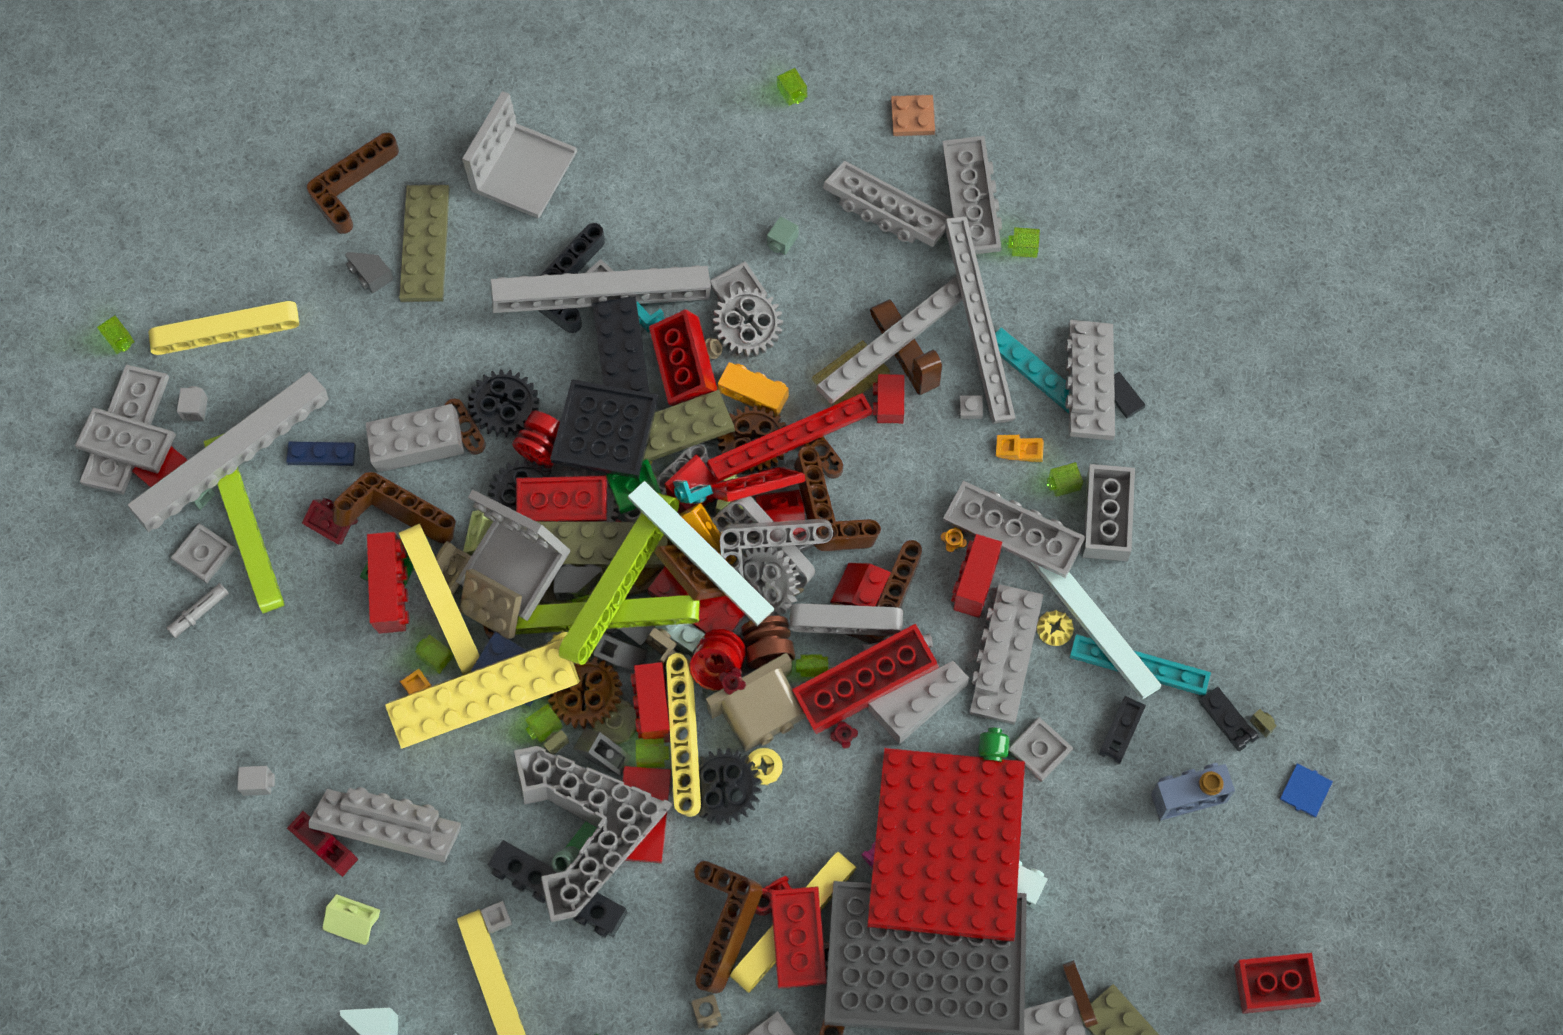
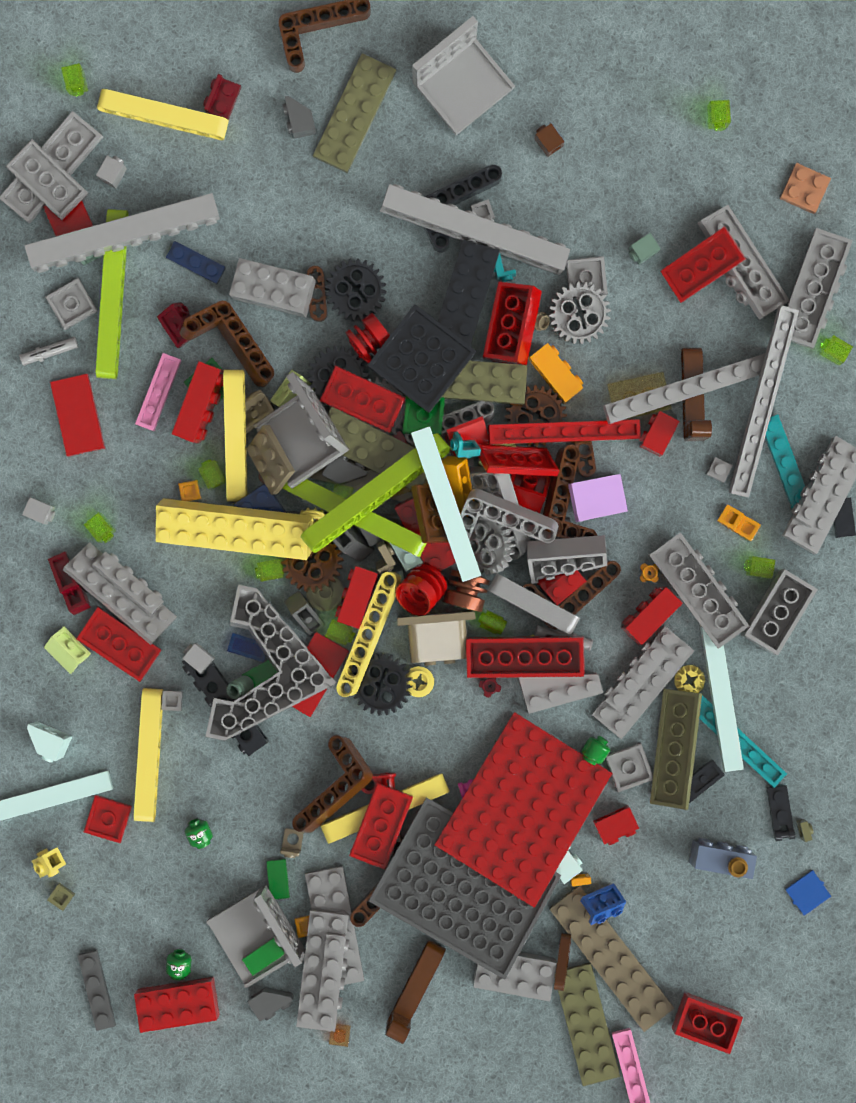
camera: 20 degrees right, 20 degrees up
(257, 662) = (77, 415): none -> red tile
(279, 284) = (222, 97): none -> dark red bracket
(332, 767) = (100, 528): none -> clear neon green brick
(336, 598) = (158, 392): none -> bright pink plate
(408, 883) = (119, 644): none -> red plate
(504, 847) = (198, 657): none -> light grey brick
(554, 820) = (246, 647): none -> clear blue tile
(555, 742) = (272, 588): olive plate -> none
(635, 180) = (549, 139): none -> reddish brown brick
(730, 687) = (419, 620): dark red plate -> none
(848, 221) = (703, 264): none -> red plate
(854, 555) = (565, 556): none -> light grey wedge
(859, 487) = (597, 497): none -> lavender tile
(1051, 894) = (581, 879): none -> light orange tile
(1058, 815) = (616, 825): none -> red brick
(1078, 702) = (676, 749): none -> olive plate
(1091, 906) = (603, 904): none -> blue bracket
(1134, 967) = (612, 961): none -> dark tan plate

